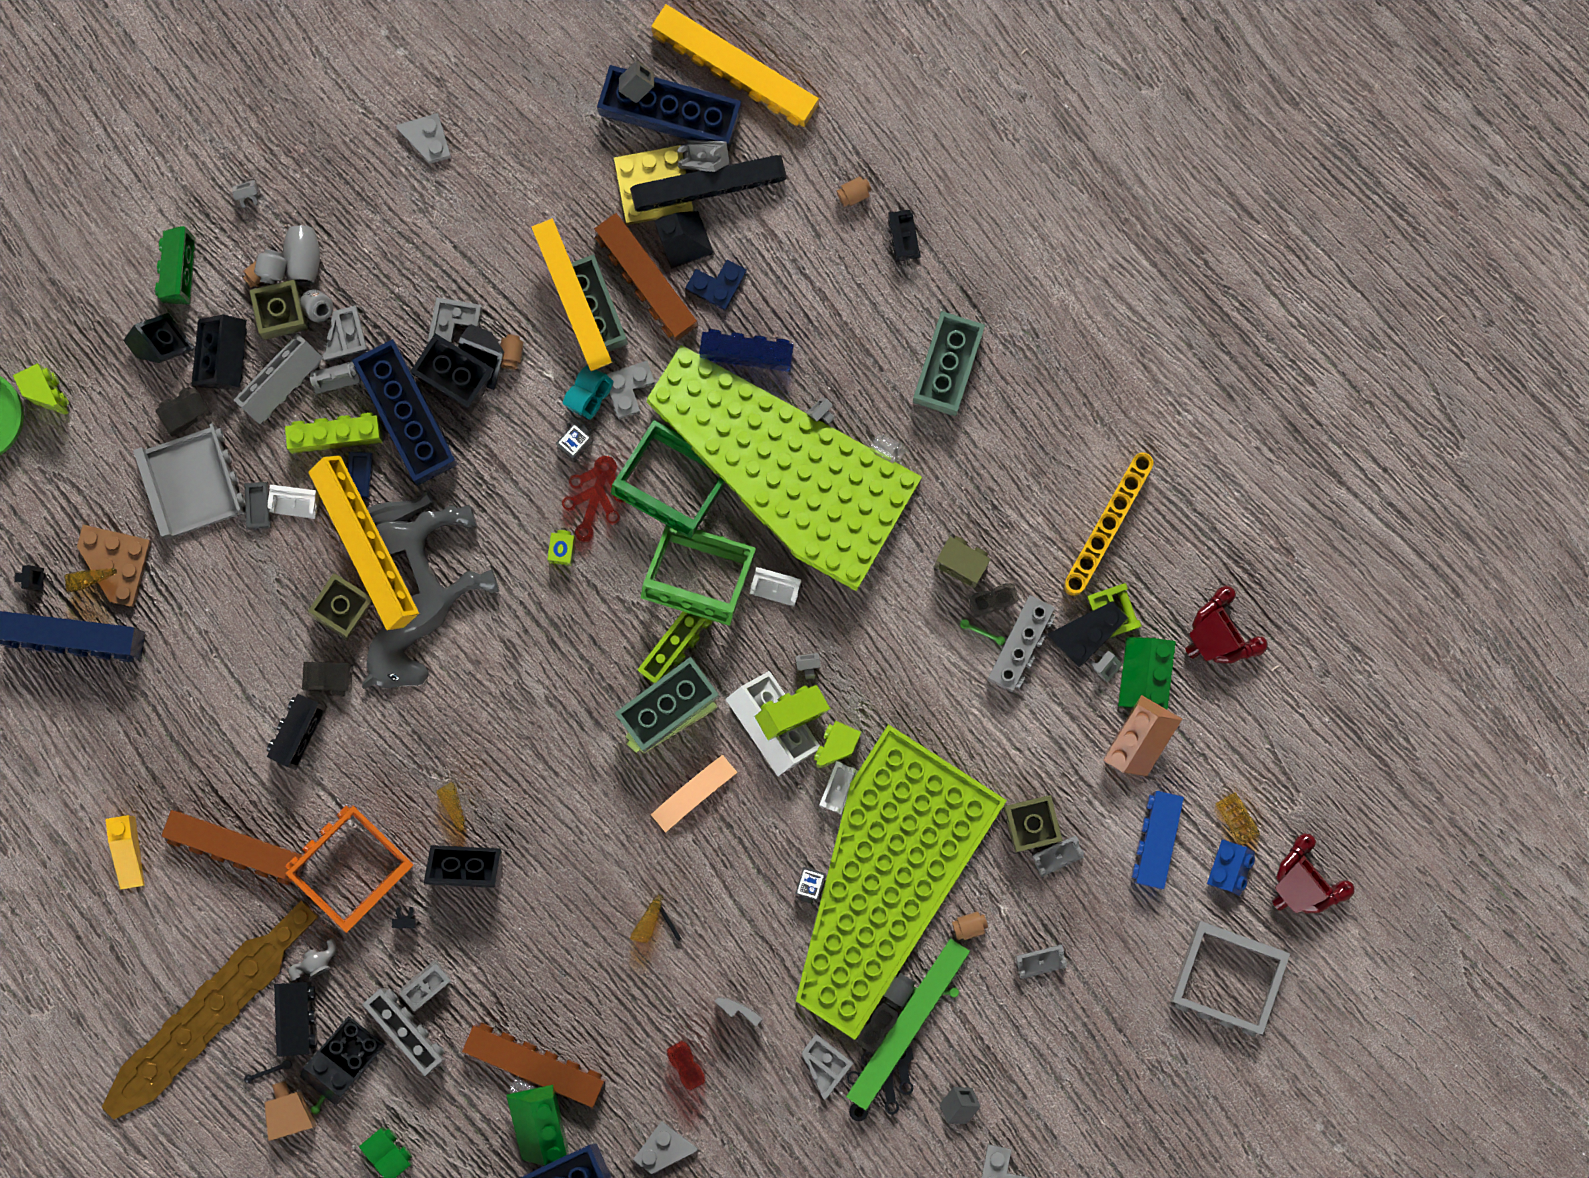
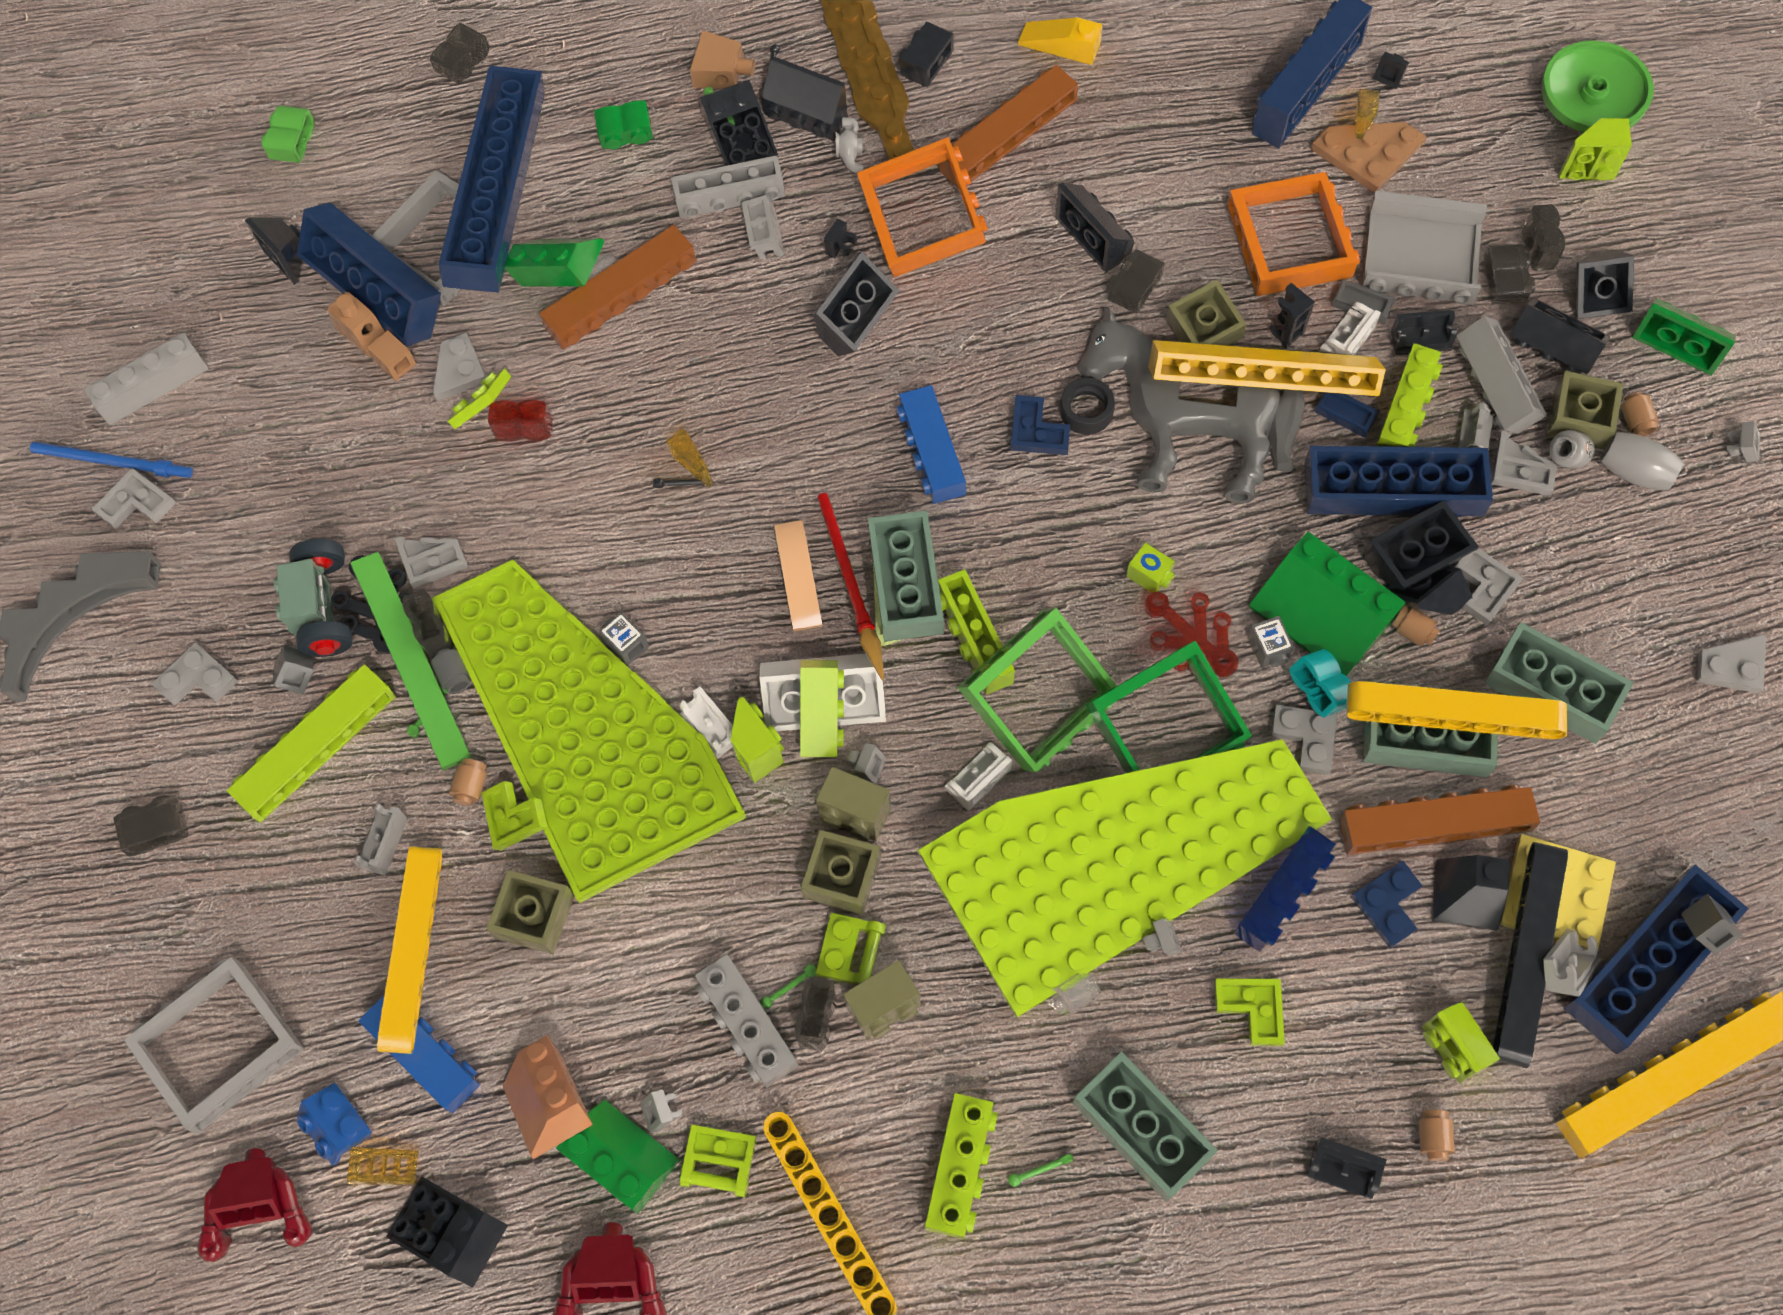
camera: 120 degrees right, 15 degrees down
(133, 402) = (1543, 237): none -> clear smoke brick
(195, 950) = (926, 54): none -> black brick
(246, 613) = (1301, 276): none -> orange window
(266, 449) = (1425, 329): none -> black hinge
(270, 266) = (1642, 415): light grey head -> none
(303, 544) = (1294, 315): none -> black hinge
(435, 655) = (1091, 387): none -> black tyre
(450, 799) = (929, 334): clear yellow slope -> none
(496, 687) = (1032, 434): none -> dark blue plate
(506, 242) = (1546, 669): none -> sand green brick
(525, 418) = (1327, 603): none -> green slope
(543, 753) = (931, 444): none -> blue brick
(684, 1102) = (482, 396): none -> lime plate
(725, 705) = (866, 628): none -> red piece
(732, 1006) = (540, 497): light grey slope -> none
(788, 201) = (1459, 1042): none -> lime slope
(828, 333) = (1260, 1000): none -> lime plate
(844, 653) = (853, 804): none -> olive brick
(893, 636) = (841, 872): none -> olive brick
(907, 1125) = (307, 596): none -> brick
(939, 613) = (840, 948): none -> lime plate
(982, 880) = (507, 820): none -> lime plate
(1003, 1054) = (311, 743): none -> lime brick
(1021, 426) = (1015, 1179): none -> bright green hinge
(1033, 462) = (960, 1165): none -> lime brick
(1058, 856) = (477, 941): light grey hinge -> none
(1088, 633) = (709, 1111): black wing -> none
(1100, 885) = (410, 951): none -> yellow beam
(1120, 1126) = (150, 826): none -> clear smoke brick
(1250, 752) = (447, 1232): none -> black slope

